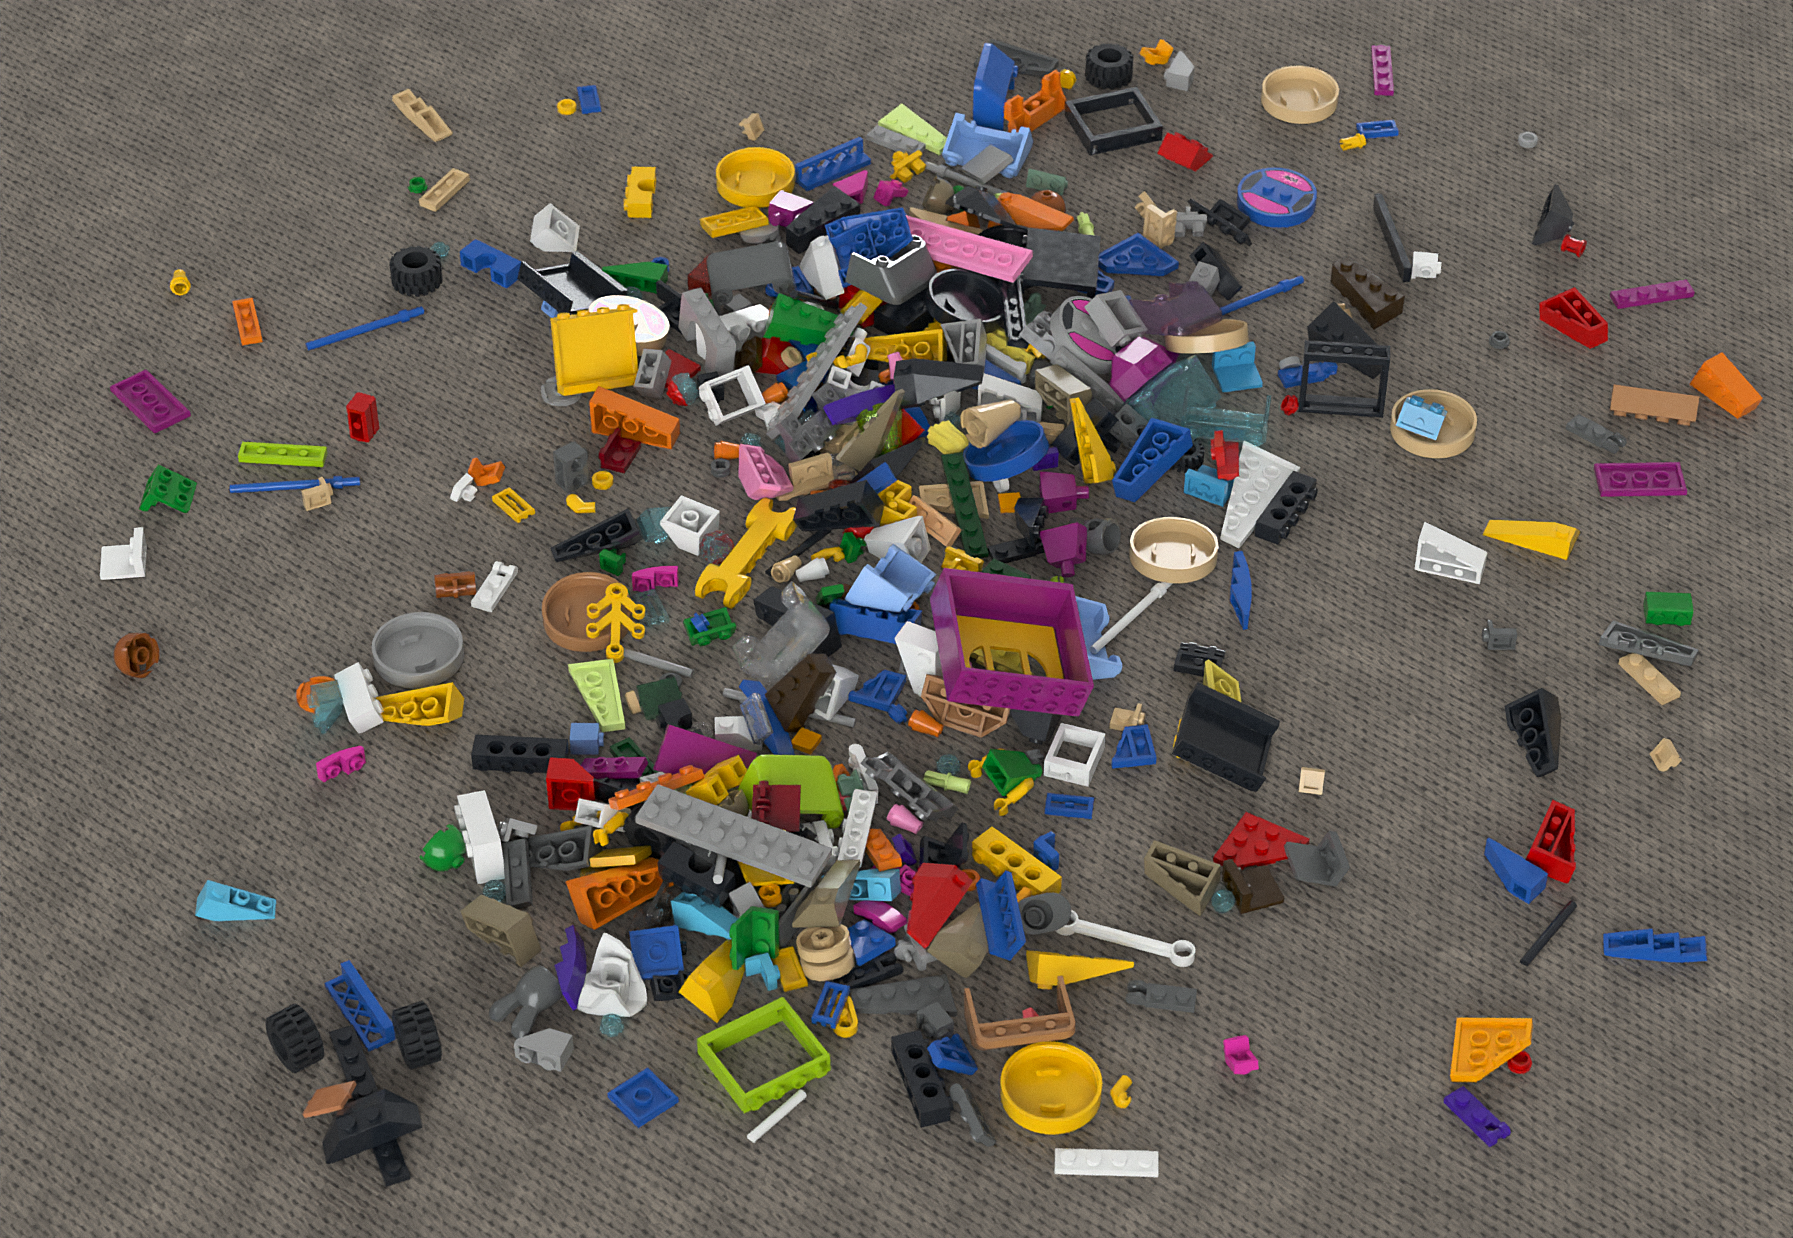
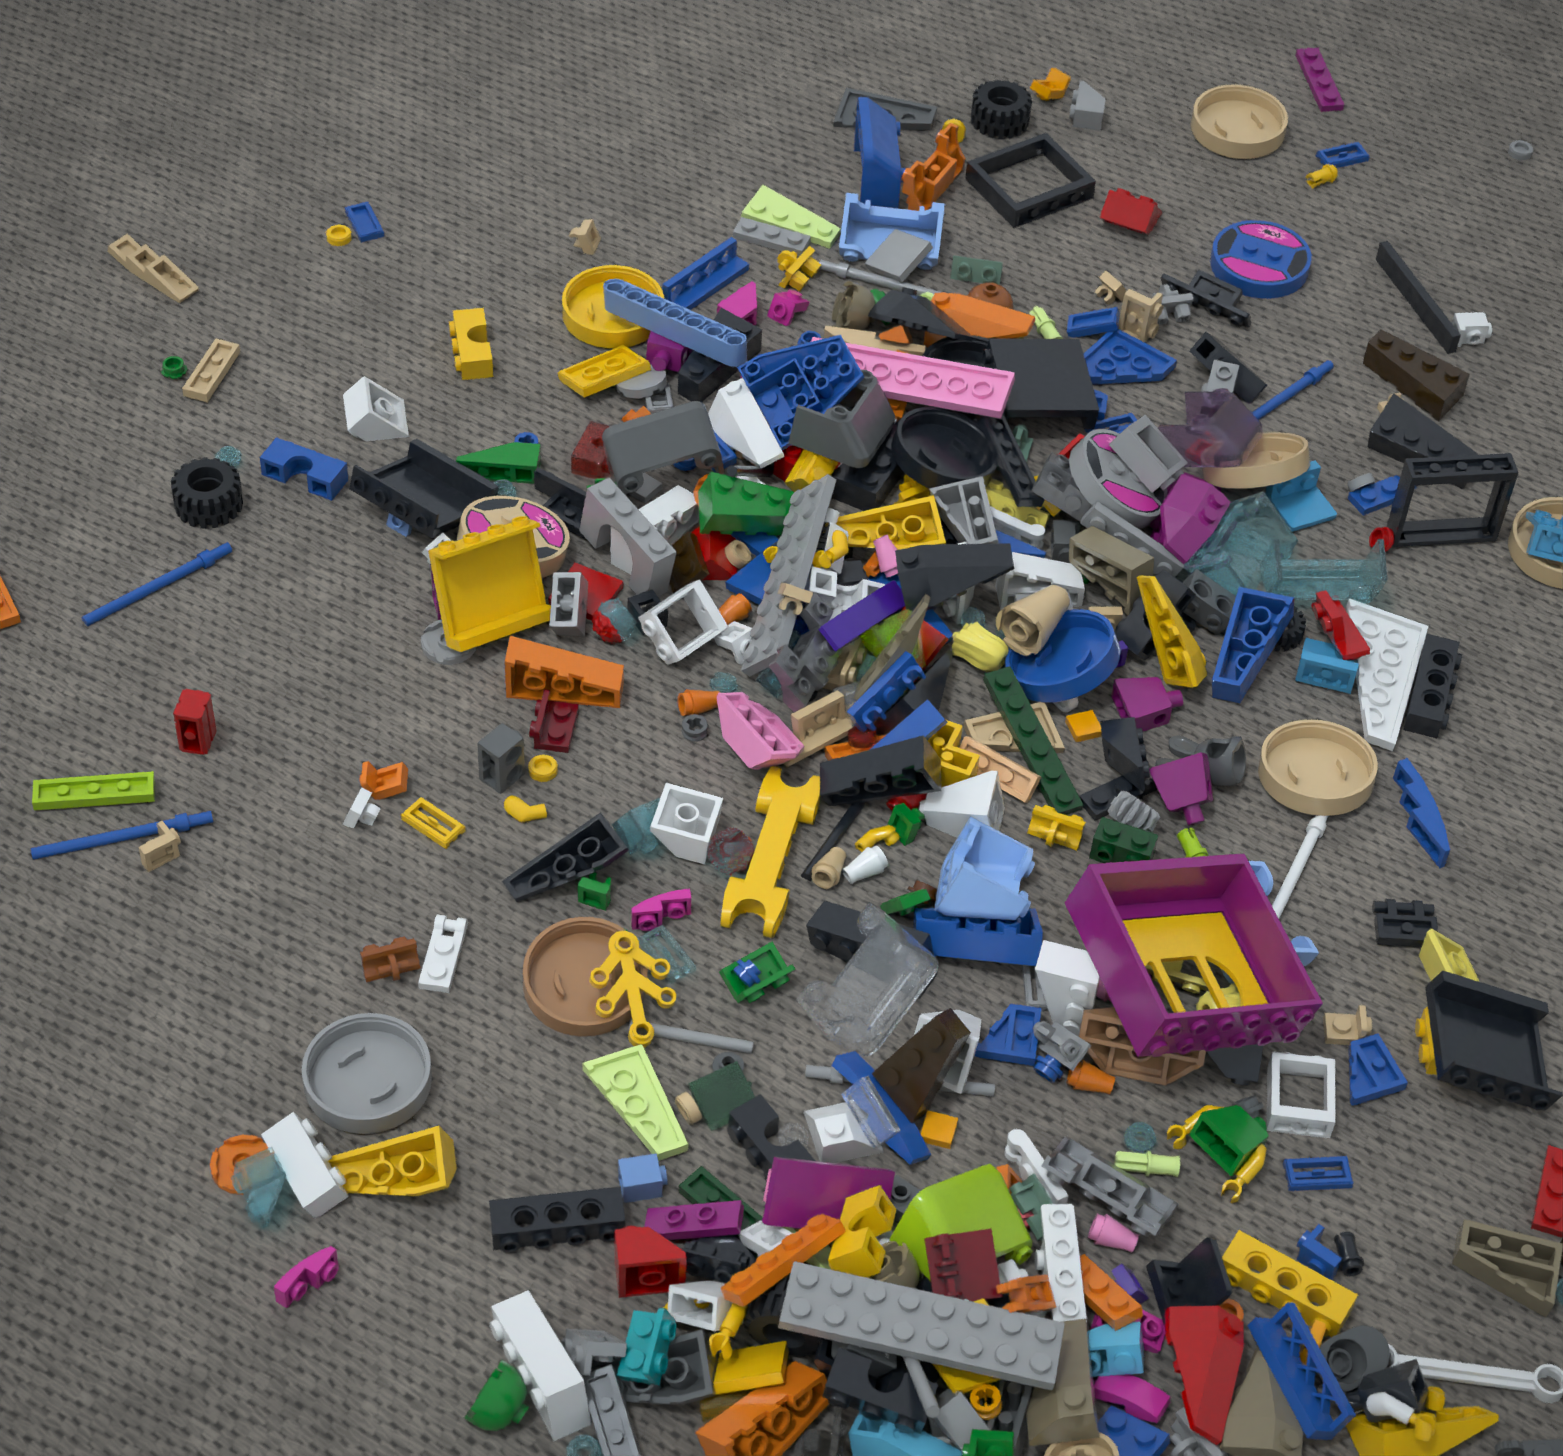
camera: 15 degrees left, 5 degrees up
(552, 831) = (647, 1347): none -> teal bracket
(792, 190) = (675, 322): none -> medium blue beam
(809, 380) = (795, 595): none -> tan tile
(819, 832) = (1028, 1294): none -> orange hinge
(859, 455) = (885, 692): none -> blue plate
(908, 697) = (1060, 1043): none -> light grey hinge
(1018, 558) = (1133, 812): none -> light grey gear
(1063, 936) = (1399, 1394): none -> torso
(1069, 859) = (1351, 1261): none -> black pin
(1123, 228) = (1093, 322): none -> blue tile

